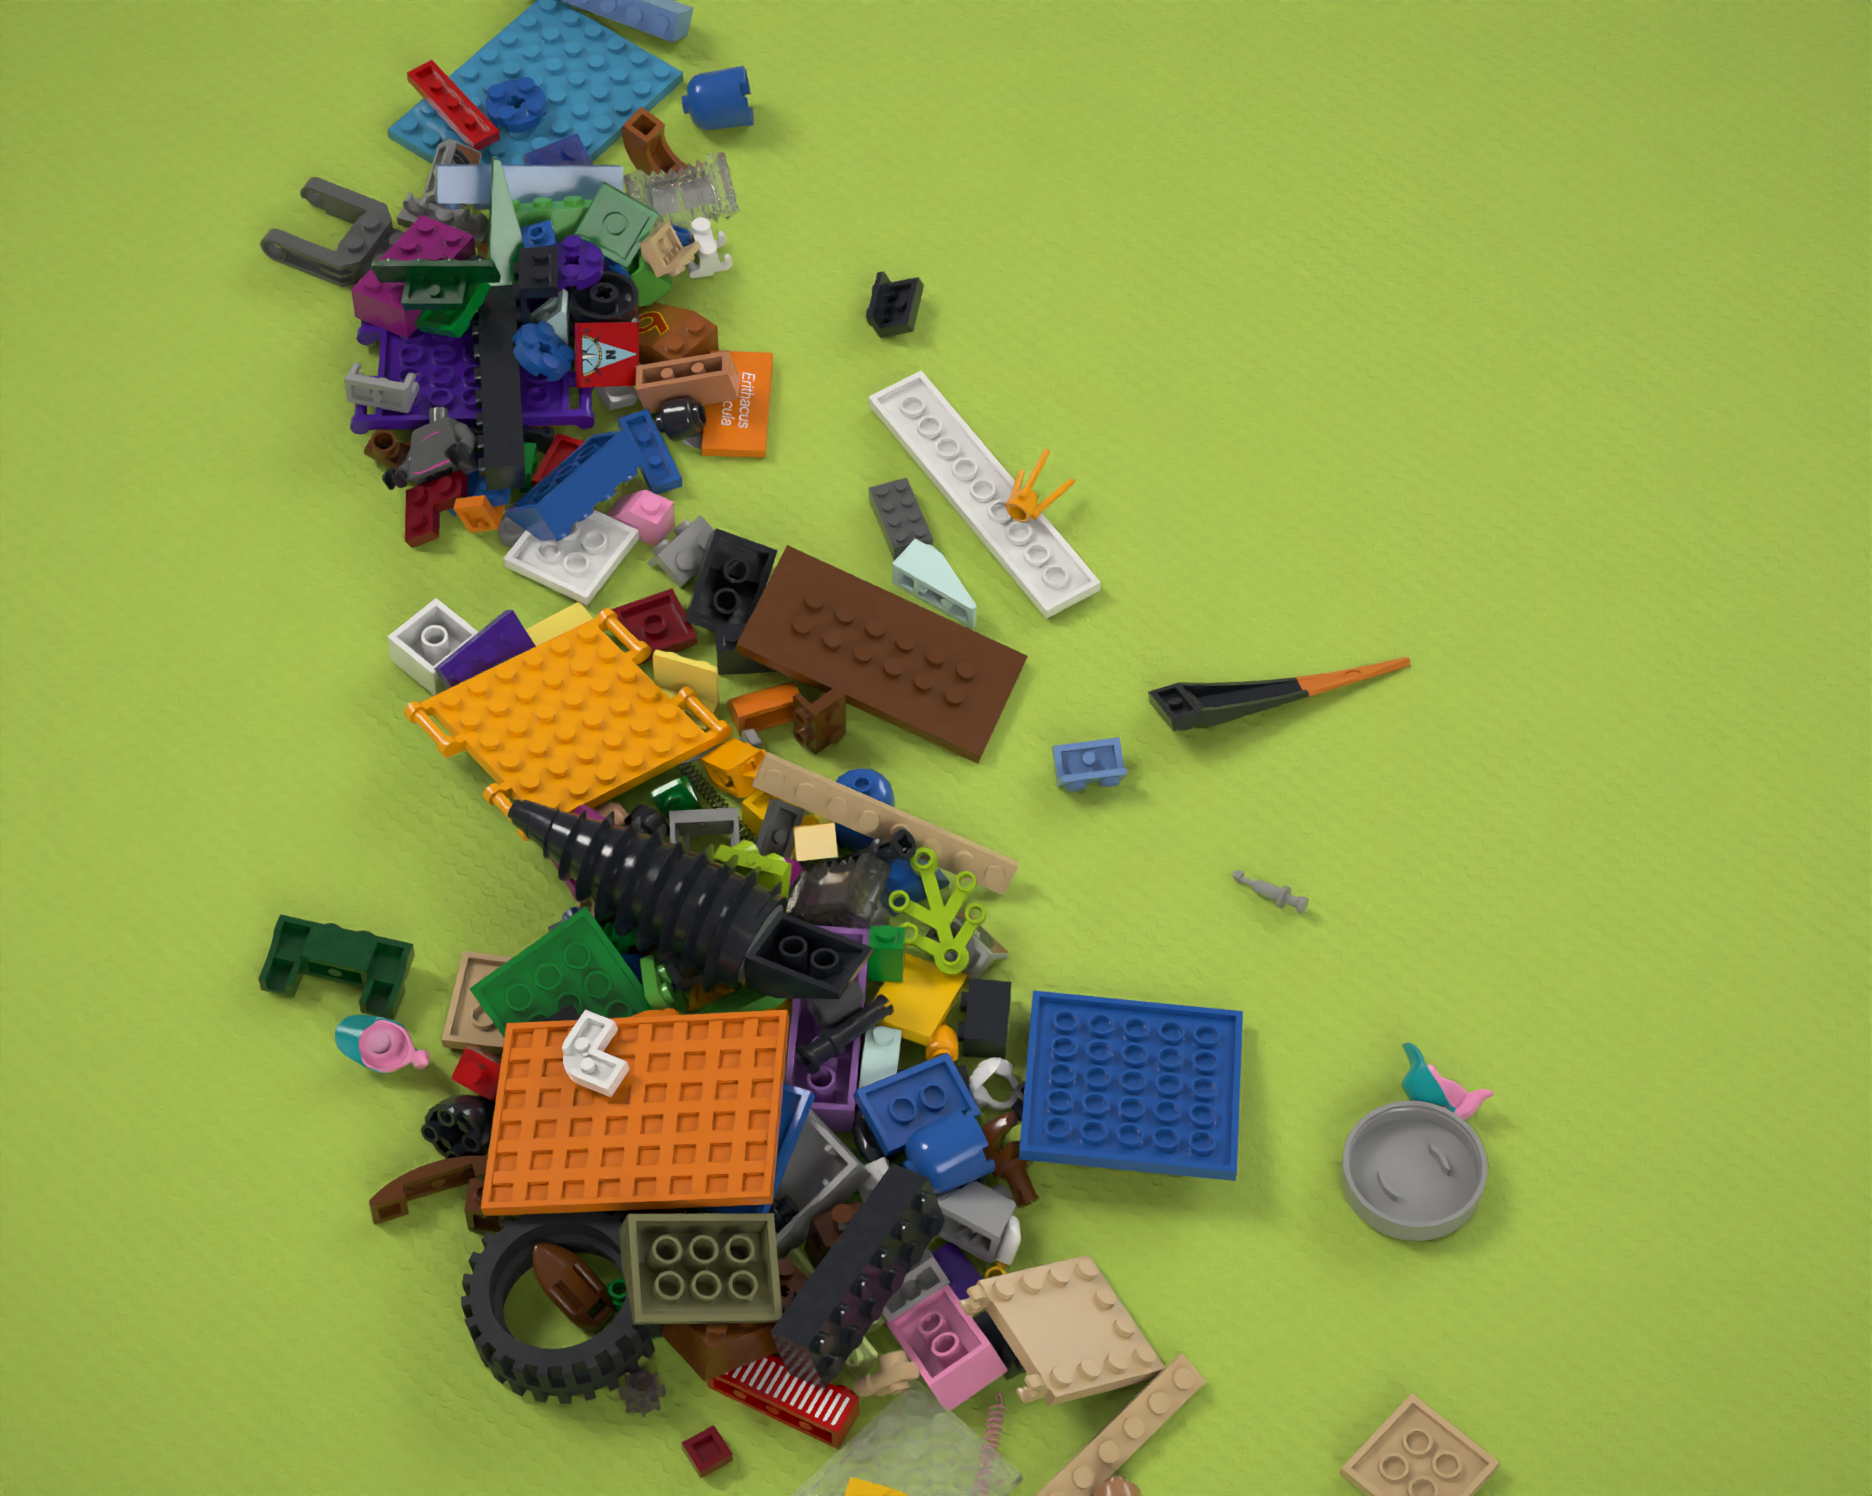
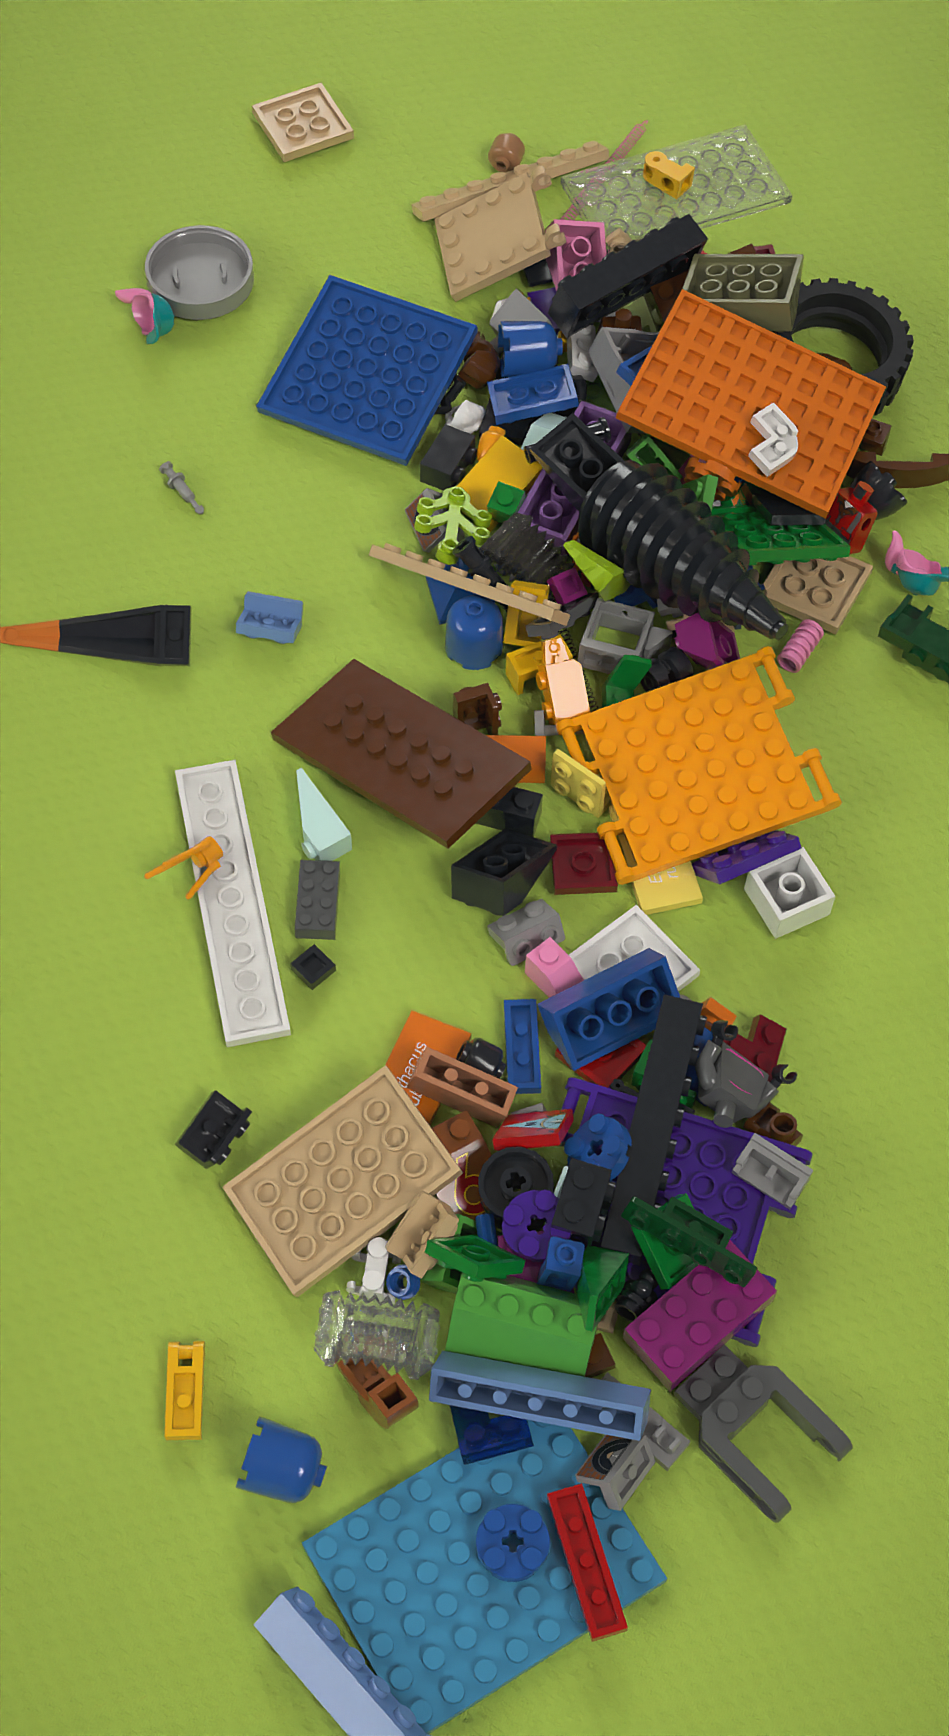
camera: 160 degrees left, 5 degrees up
(499, 922) = (800, 646): none -> bright pink piece
(760, 285) = (341, 1180): none -> tan plate
(823, 134) = (184, 1392): none -> yellow plate
(874, 458) = (313, 967): none -> black plate

